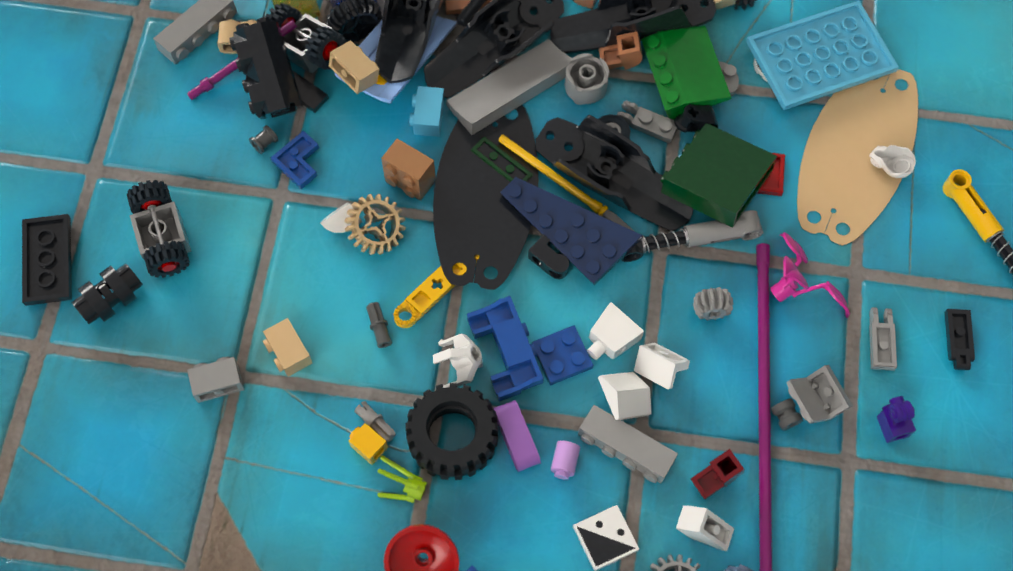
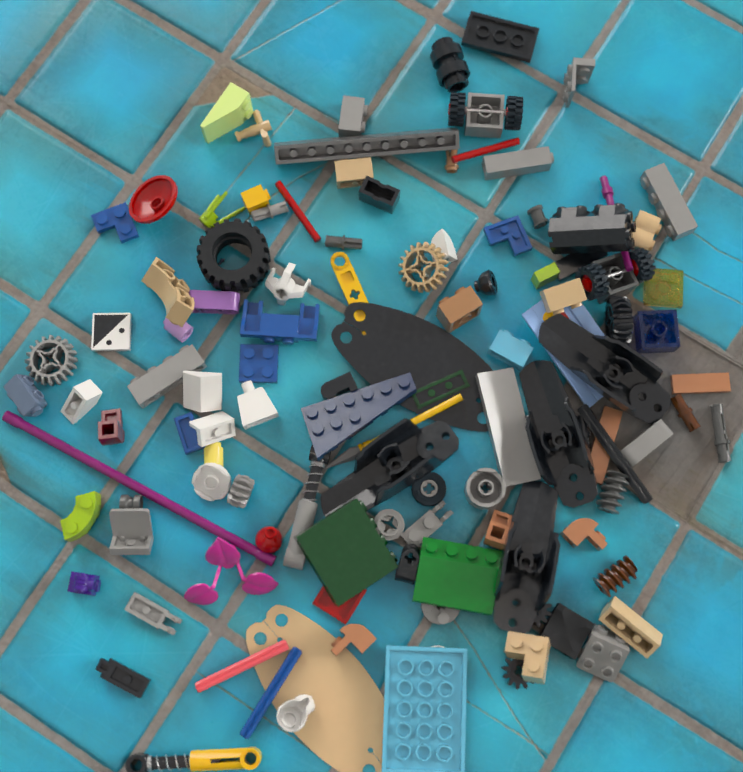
camera: 115 degrees right, 10 degrees up
(84, 157) = (577, 73): none -> light grey bracket
(203, 219) = (485, 150): none -> red bar
(207, 182) = (517, 163): none -> light grey brick
(231, 250) = (451, 167): none -> medium nougat pin
(250, 347) = (366, 145): none -> flat silver brick
(260, 520) = (228, 113): none -> yellowish green slope
(271, 483) = (261, 127): none -> tan piece
(306, 305) = (379, 195): none -> black brick
(330, 107) = (545, 275): none -> lime piece
(360, 393) = (296, 209): none -> red bar
(364, 160) = (486, 283): none -> black brick
(527, 481) = (171, 290): none -> tan brick
(657, 151) = (398, 522): none -> light grey gear
(671, 400) = (187, 434): none -> blue tile
(693, 350) = (213, 454): none -> light yellow brick
(718, 339) = (211, 481): none -> white tile
(744, 259) = (268, 539): none -> red brick
(791, 142) = (357, 635): none -> nougat brick
(829, 458) = (82, 517): none -> lime brick
(880, 231) = (241, 666): none -> coral axle
(887, 193) = (270, 693): none -> blue axle

